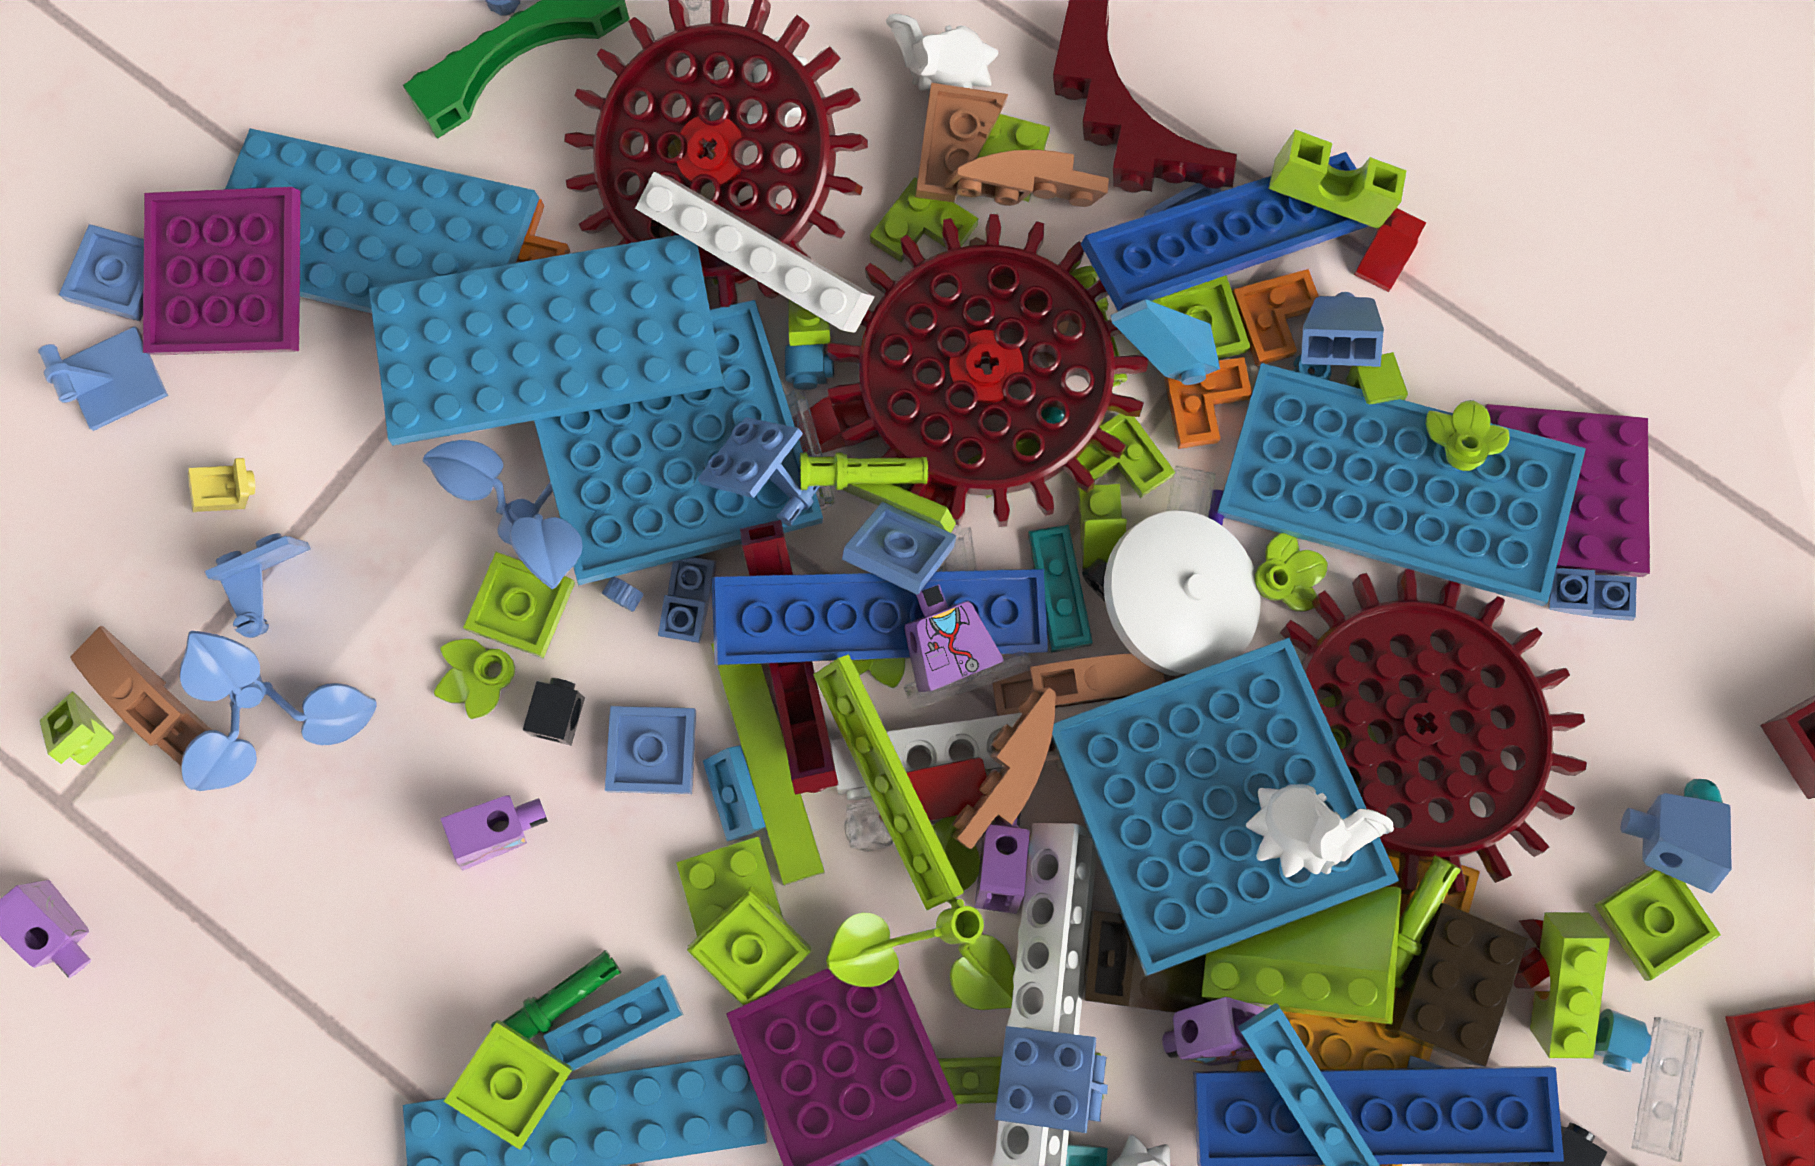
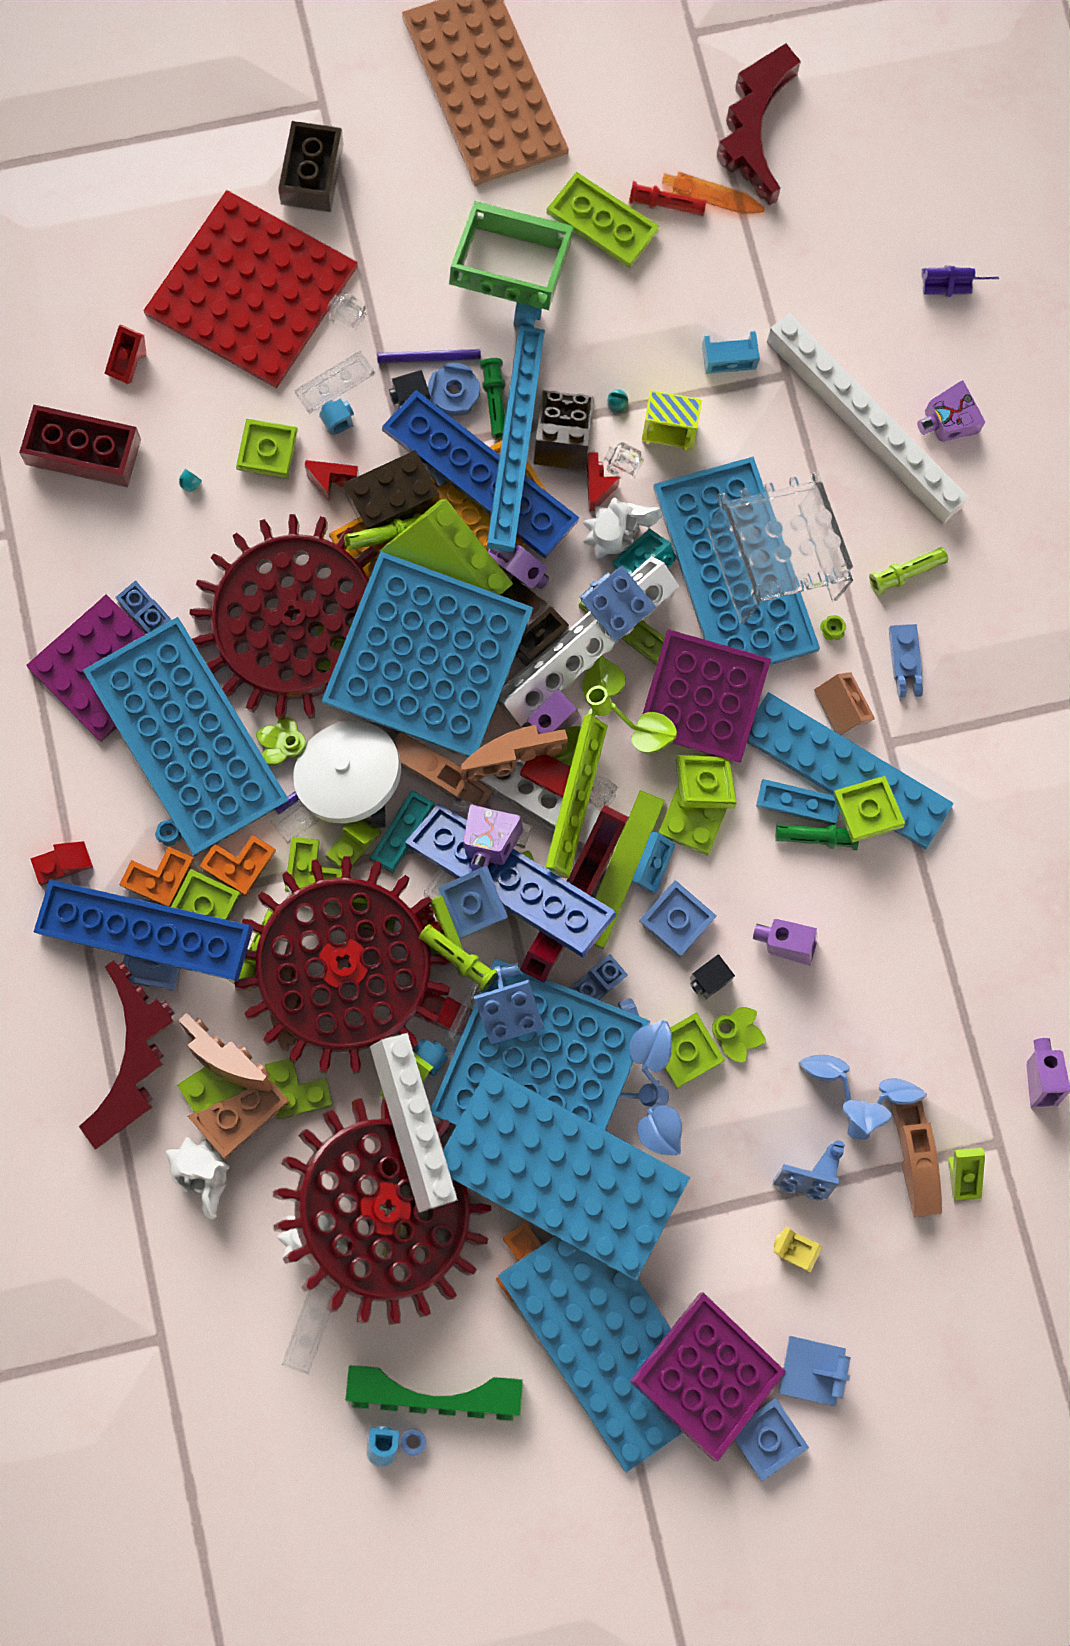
camera: 145 degrees left, 0 degrees up
(1170, 340) = (237, 891): dark azure slope -> none
(1308, 833) = (406, 602): white head -> none
(1343, 332) = (138, 832): medium blue torso -> none
(1359, 194) = (74, 918): lime arch -> none
(1379, 383) = (144, 793): lime panel -> none
(1467, 435) = (129, 727): lime plate -> none
(1576, 957) = (350, 444): lime arch -> none
(1684, 838) = (221, 468): medium blue torso -> none

